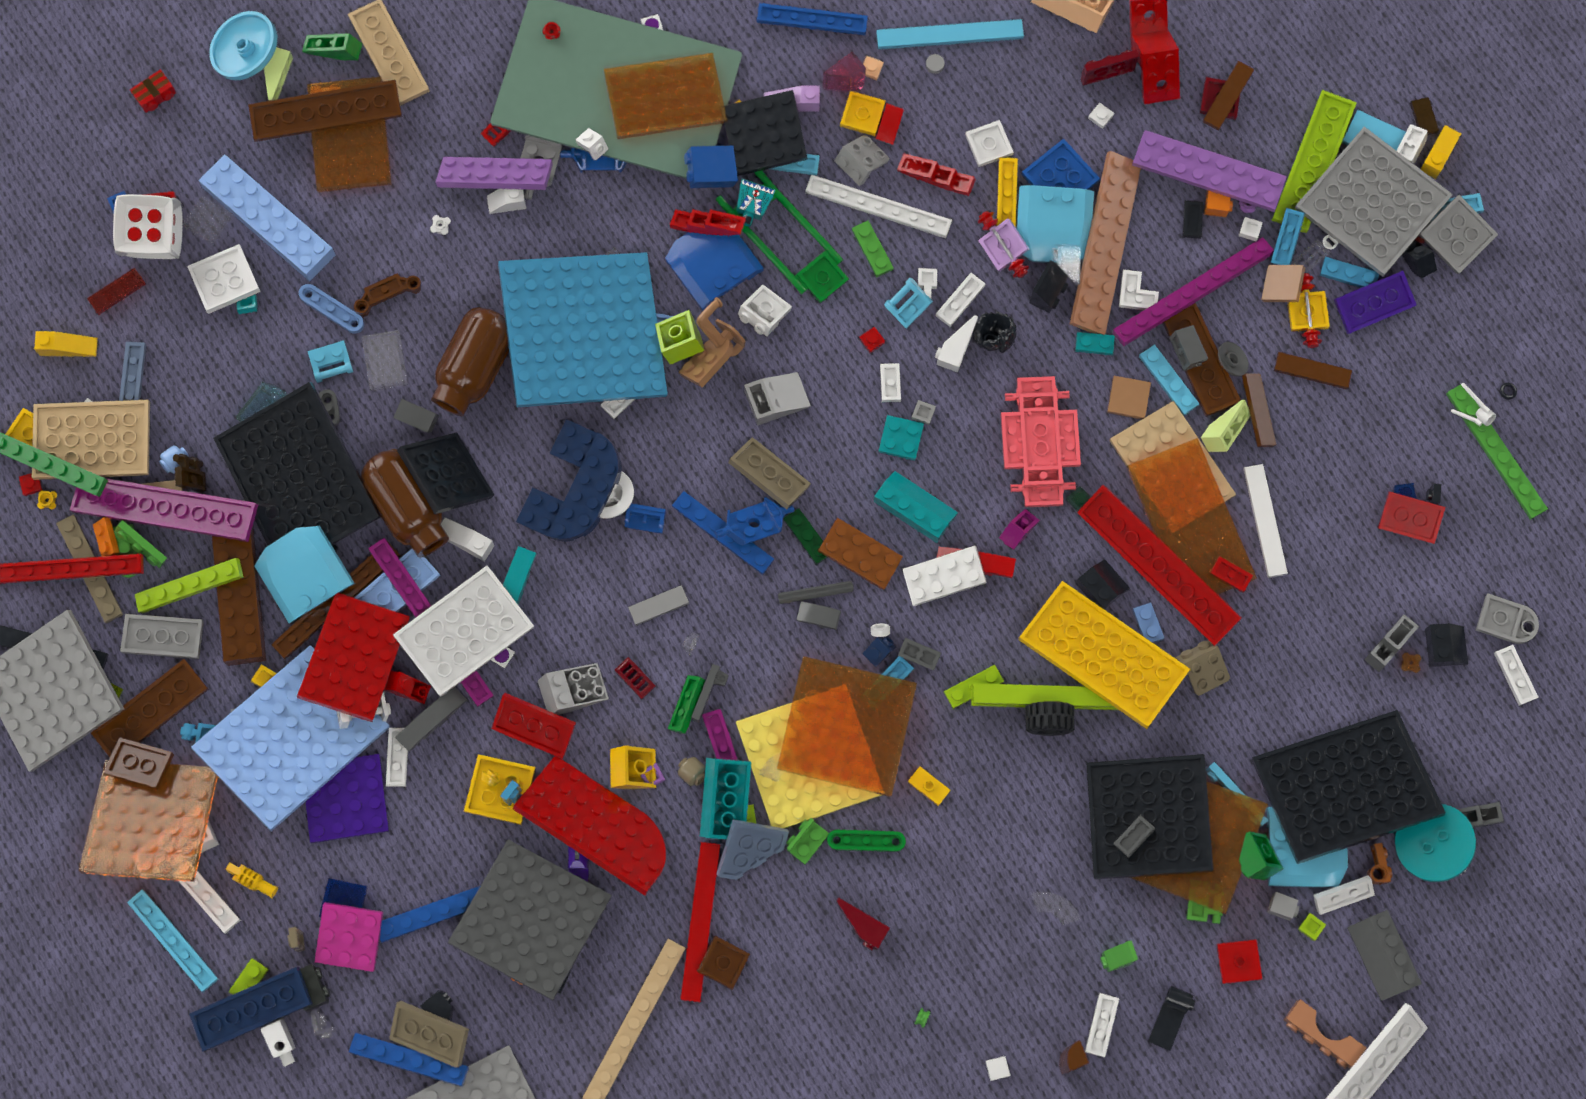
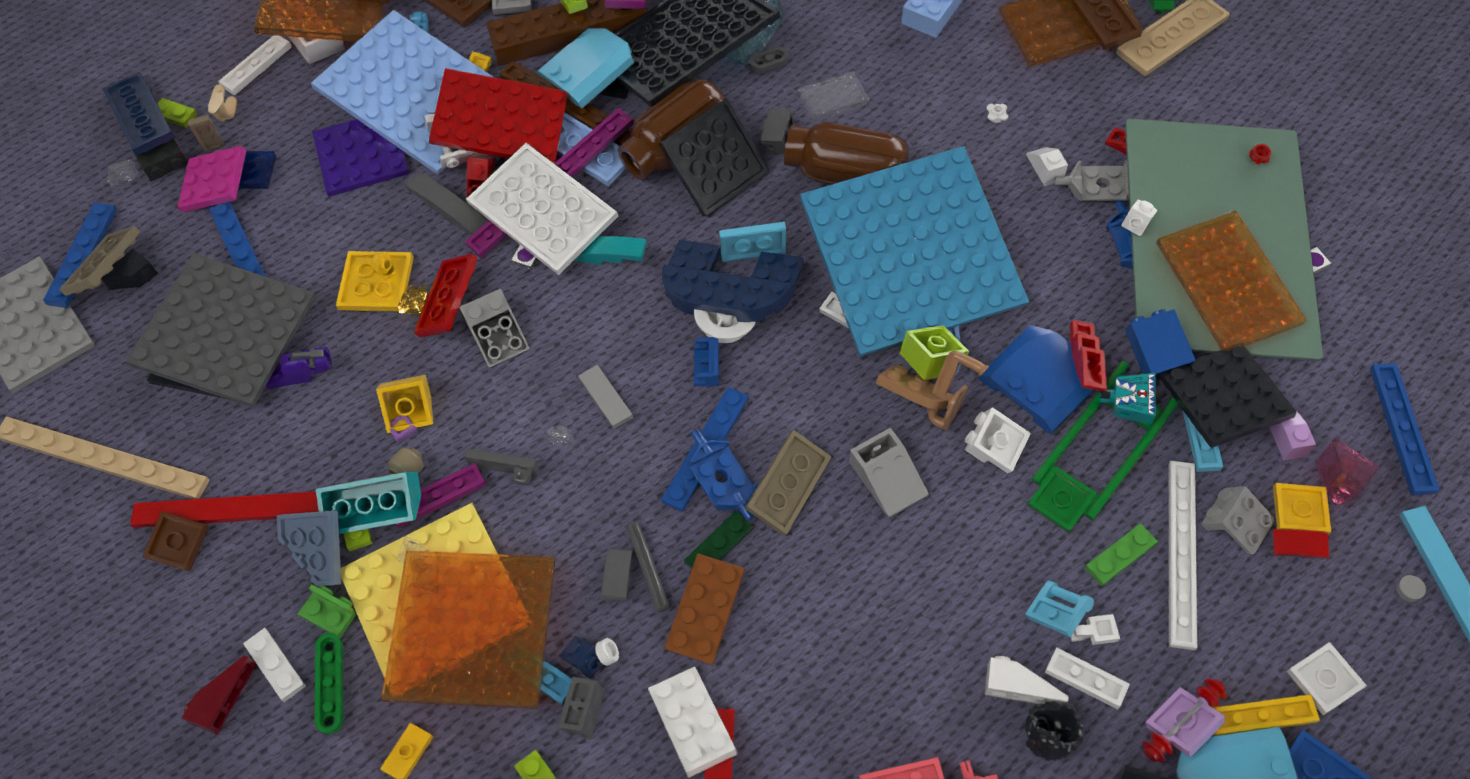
camera: 85 degrees right, 15 degrees down
(173, 940) = (210, 49): medium azure plate -> none
(251, 879) = (273, 93): yellow hinge -> none
(259, 926) = (218, 108): none -> tan helmet
(277, 1032) = (105, 140): white torso -> none
(329, 356) = (824, 50): medium azure plate -> none
(331, 308) = (875, 42): medium blue plate -> none
(385, 290) = (907, 78): reddish brown plate -> none
(396, 760) = (396, 188): white tile -> none
(468, 539) = (649, 200): white slope -> none
(494, 173) = (1071, 141): medium lavender plate -> none
(511, 793) = (360, 280): dark azure plate -> none
(530, 756) = (413, 301): none -> clear yellow plate
(540, 457) = (751, 240): none -> medium azure tile
(595, 824) = (330, 373): red plate -> none
(624, 677) = (526, 384): dark red slope -> none
(686, 704) = (462, 441): green plate -> none
(842, 884) = (274, 665): none -> white plate
(872, 339) = (997, 575): red plate -> none
(873, 67) = (1369, 510): light nougat plate -> none
(890, 382) = (944, 607): white plate -> none
(901, 437) = (874, 635): teal plate -> none
(915, 506) = (783, 668): teal slope -> none
(923, 412) = (914, 656): light grey plate -> none
(935, 174) = (1253, 617): red slope -> none

